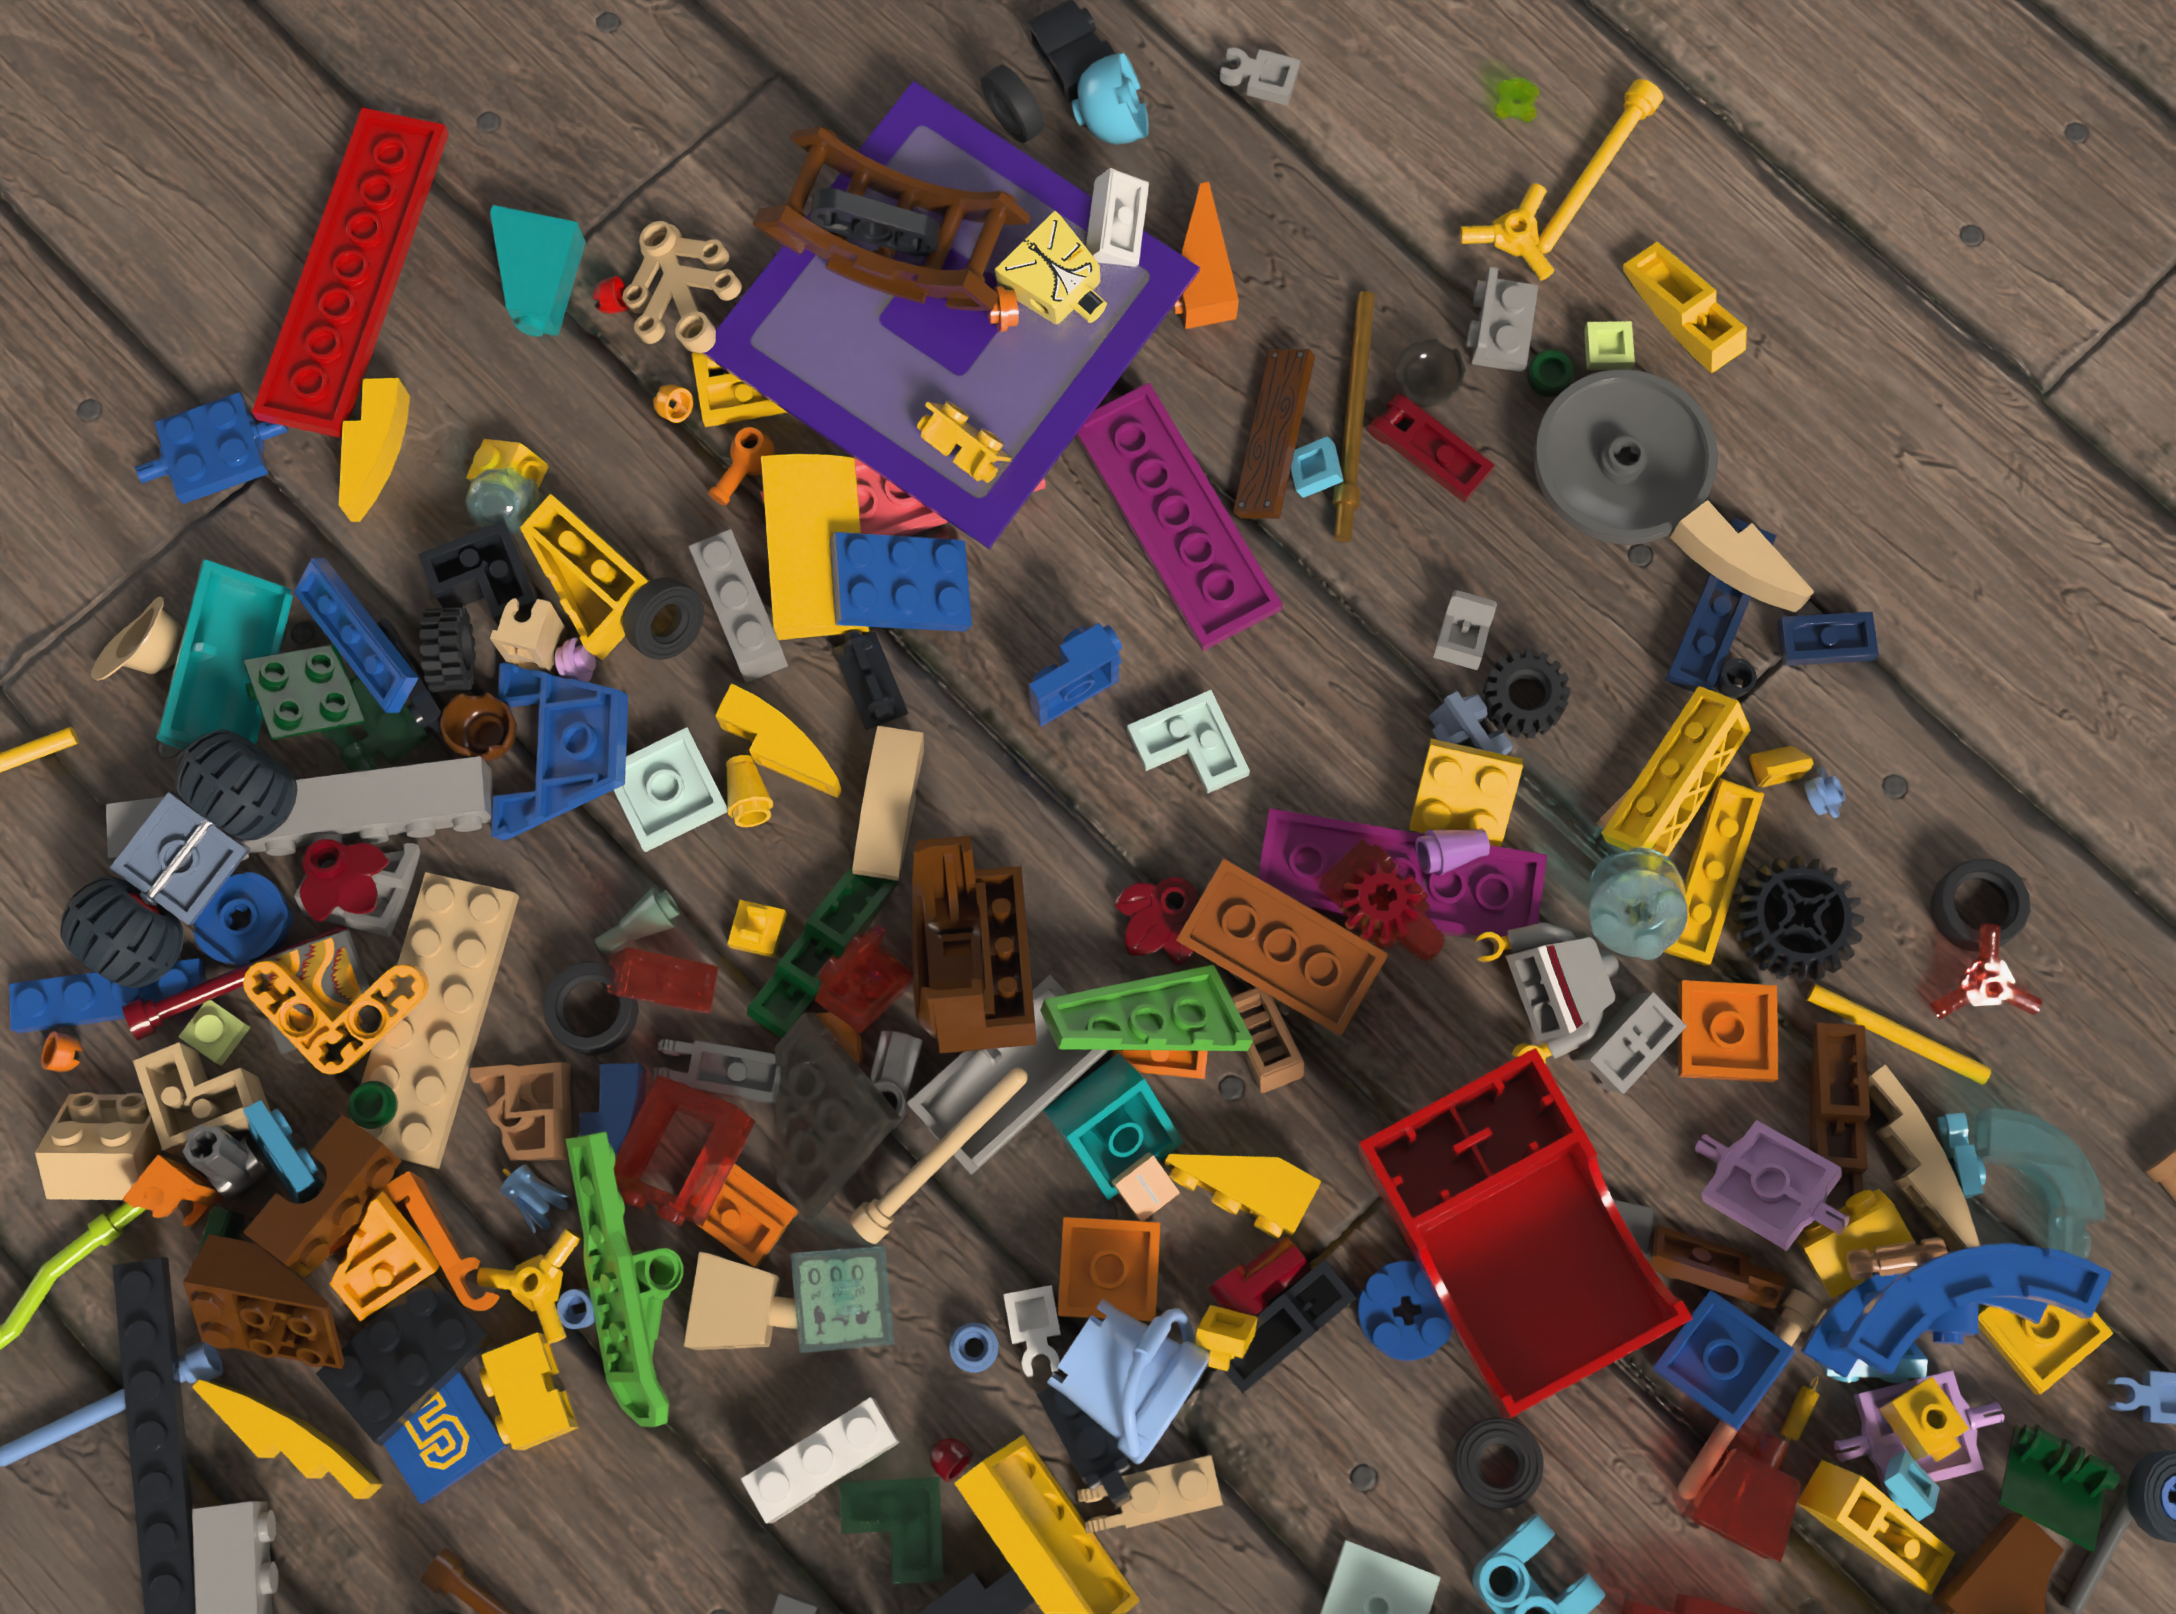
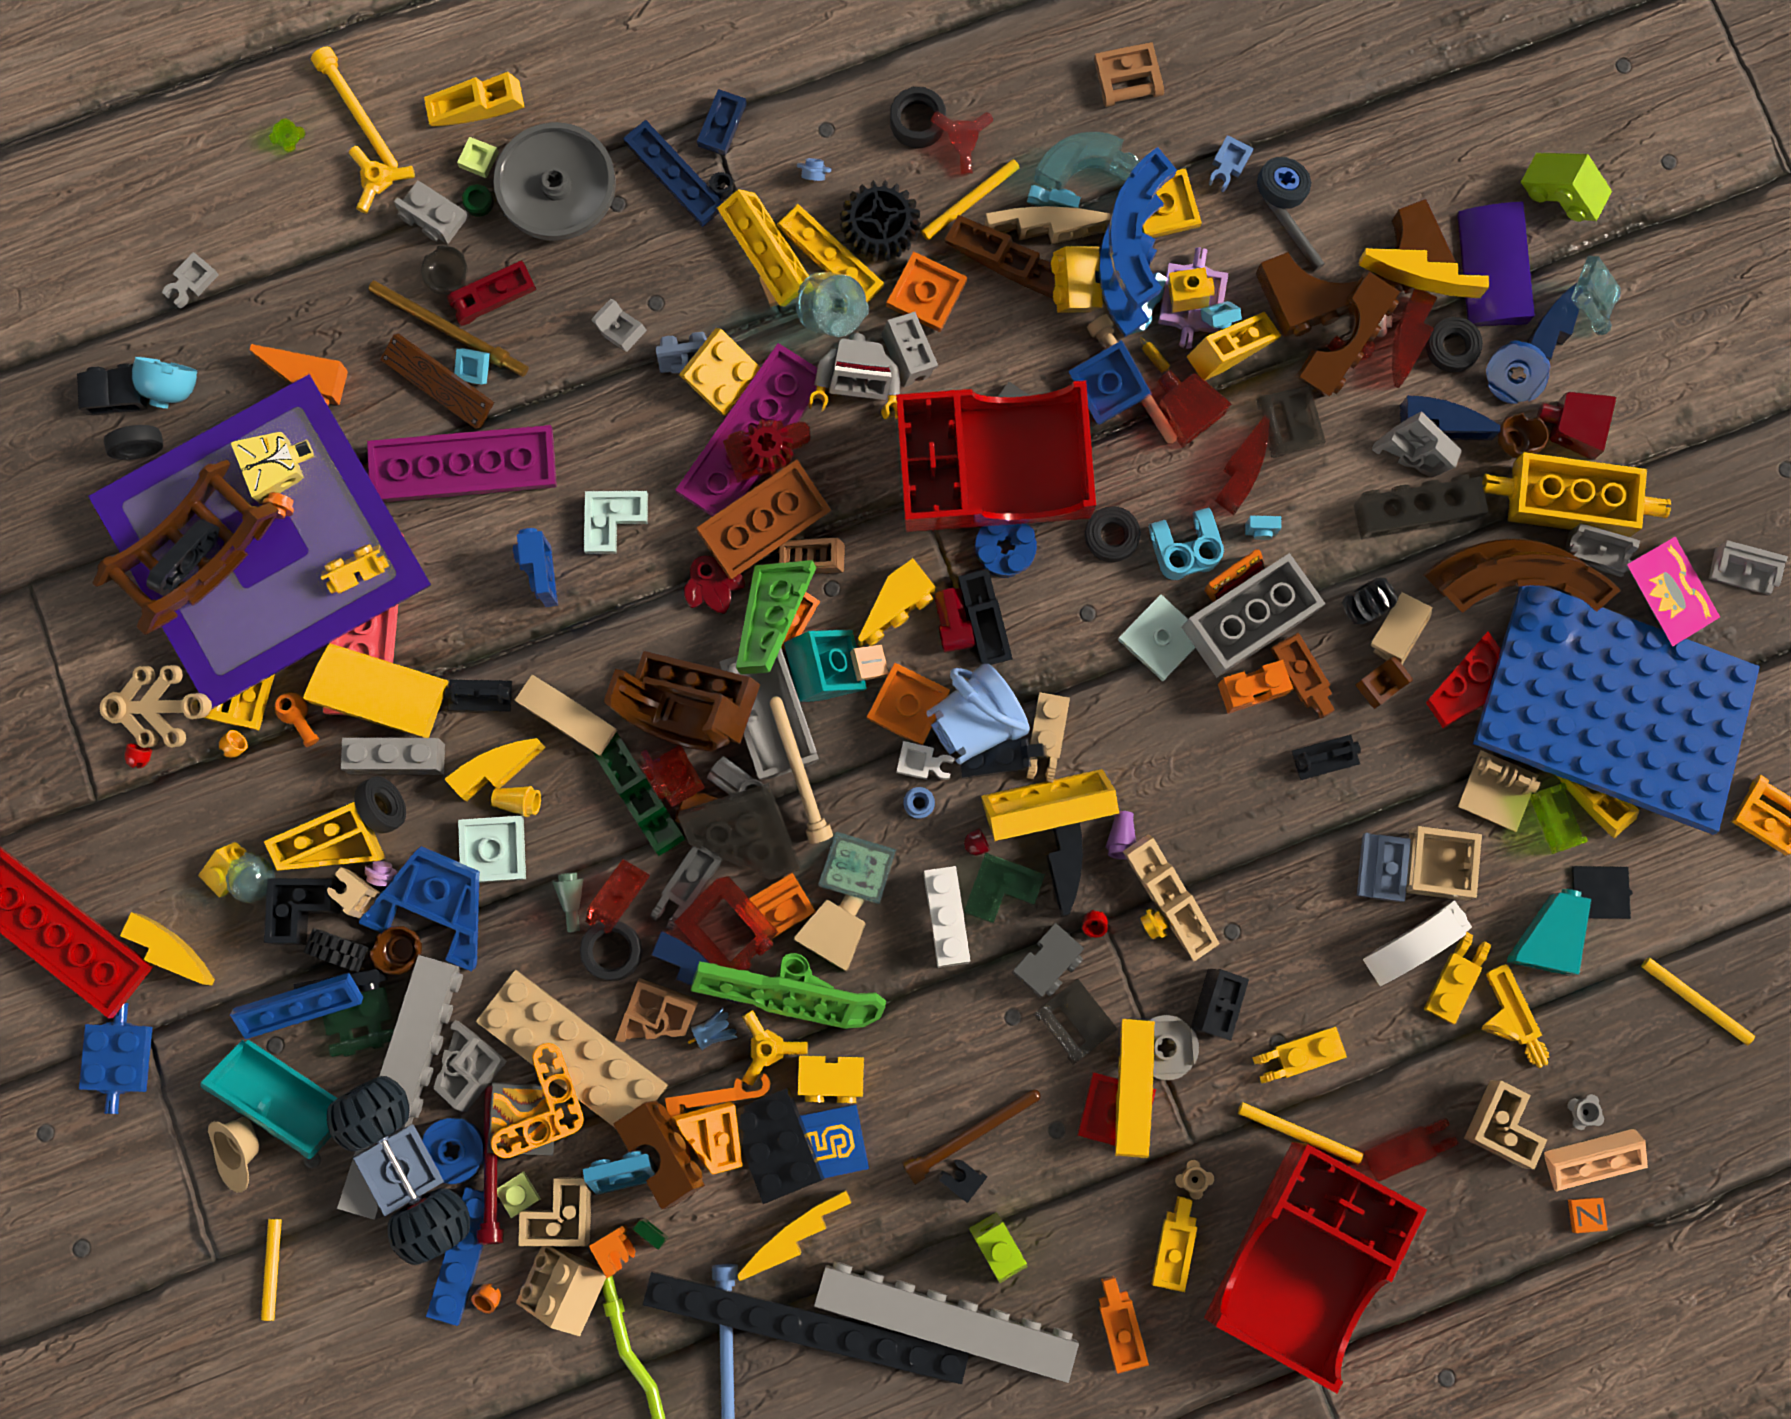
camera: 70 degrees left, 5 degrees up
(226, 1162) = (607, 1211): flat silver piece -> none
(258, 1305) = (710, 1216): reddish brown slope -> none
(302, 692) = (320, 1053): dark green hinge -> none
(344, 883) = (462, 1073): dark red plate -> none
(372, 1105) = (613, 1106): dark green plate -> none
(536, 267) = (92, 794): teal slope -> none
(566, 1311) = (800, 1032): medium blue hinge -> none
(757, 928) = (607, 829): yellow tile -> none
(900, 582) = (426, 648): blue plate -> none
(1117, 218) = (250, 409): white slope -> none
(1225, 1335) = (977, 650): yellow tile -> none
(1448, 849) = (750, 395): medium lavender cone -> none
(1533, 668) = (674, 292): black tyre -> none
(1713, 1267) = (1056, 363): reddish brown hinge -> none
(1741, 559) = (654, 145): tan slope -> none
(1771, 1184) = (1025, 309): lavender plate -> none
(1779, 765) = (784, 187): yellow slope -> none
(1892, 1258) = (1096, 260): medium nougat axle -> none
(2056, 1485) = (1251, 238): dark green hinge -> none

